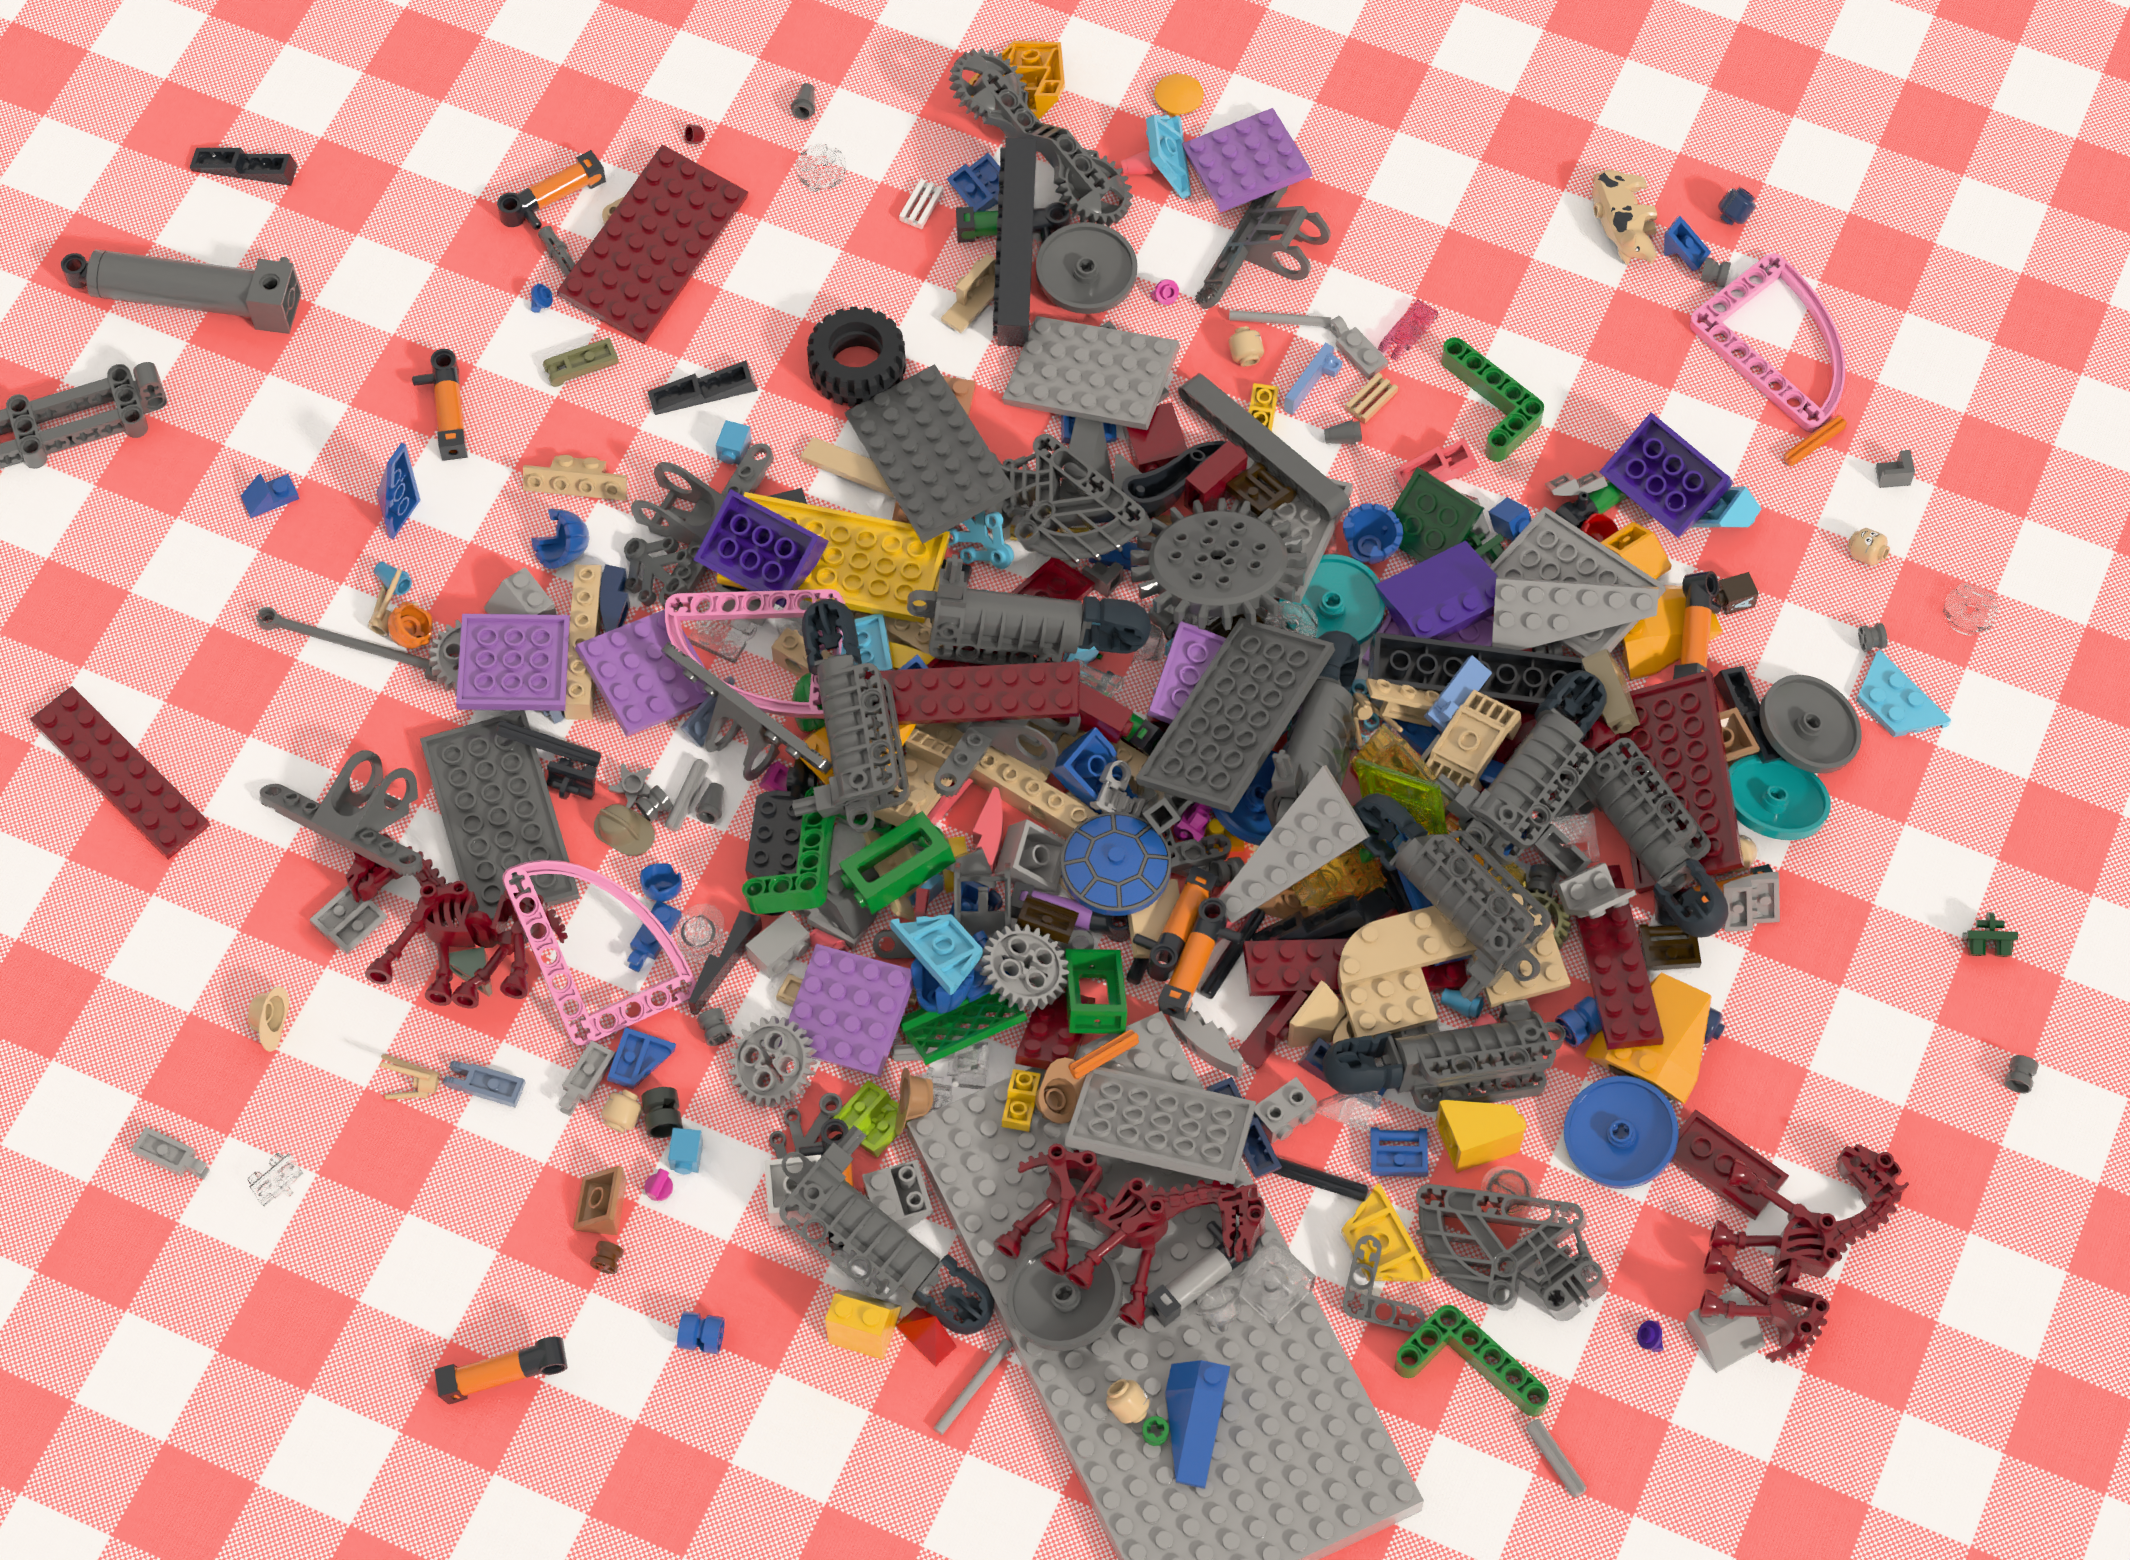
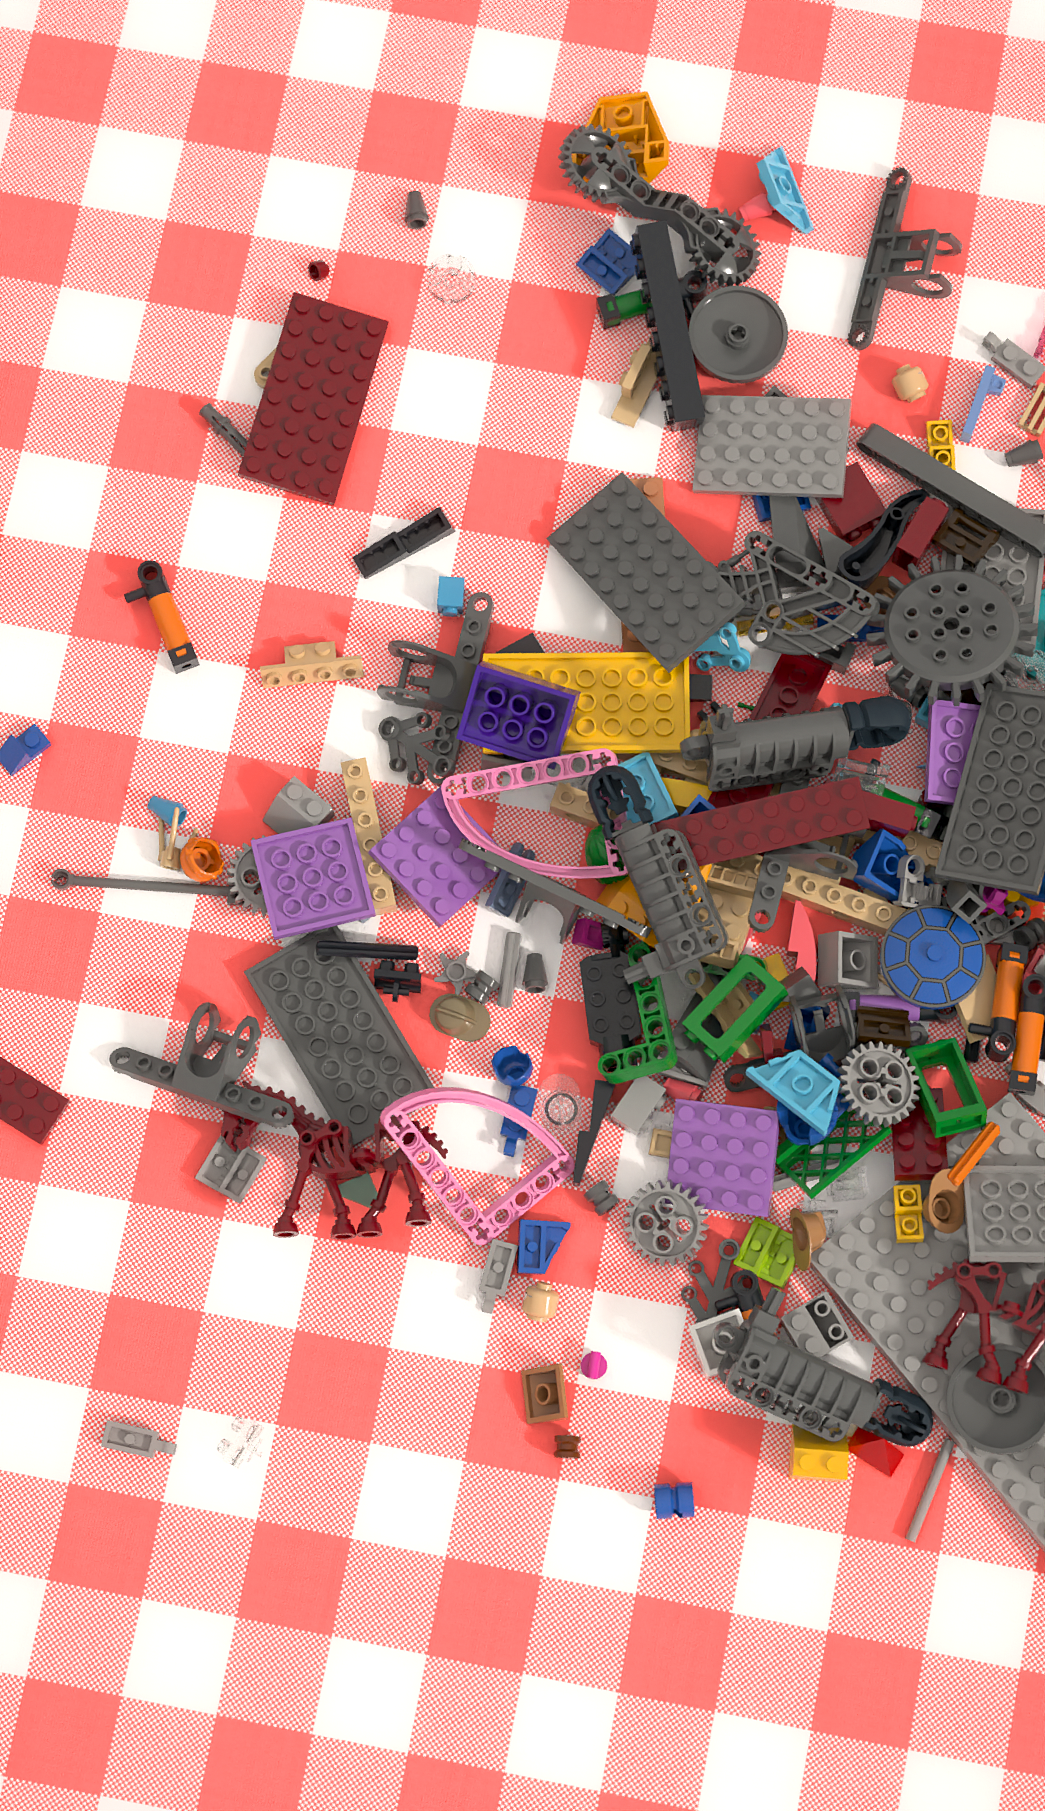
camera: 10 degrees left, 15 degrees up
(267, 1016) = (185, 1285): tan piece -> none
(397, 491) = (148, 726): blue wedge -> none
(424, 1079) = (350, 1313): tan plant -> none
(486, 1083) = (408, 1302): sand blue hinge -> none
(516, 207) = (225, 336): piece -> none
(540, 297) = (221, 480): blue plate -> none
(543, 1358) = (506, 1581): piece -> none
(568, 543) = (321, 741): blue hair -> none
(580, 361) = (280, 541): olive plate -> none
(613, 598) = (384, 789): dark blue slope -> none
(661, 1111) = (578, 1294): pearl dark grey wheel -> none
(685, 1150) = (609, 1327): dark azure brick -> none
(721, 640) = (495, 805): clear plate -> none
(844, 464) = (562, 594): tan tile -> none
(848, 330) = (537, 449): black tyre -> none
(929, 188) = (561, 277): white tile -> none
(1165, 292) = (817, 341): plate -> none
(1178, 94) = (774, 121): light orange dish -> none
(1246, 160) = (860, 182): medium lavender plate -> none
(1280, 318) = (932, 344): light grey bar -> none

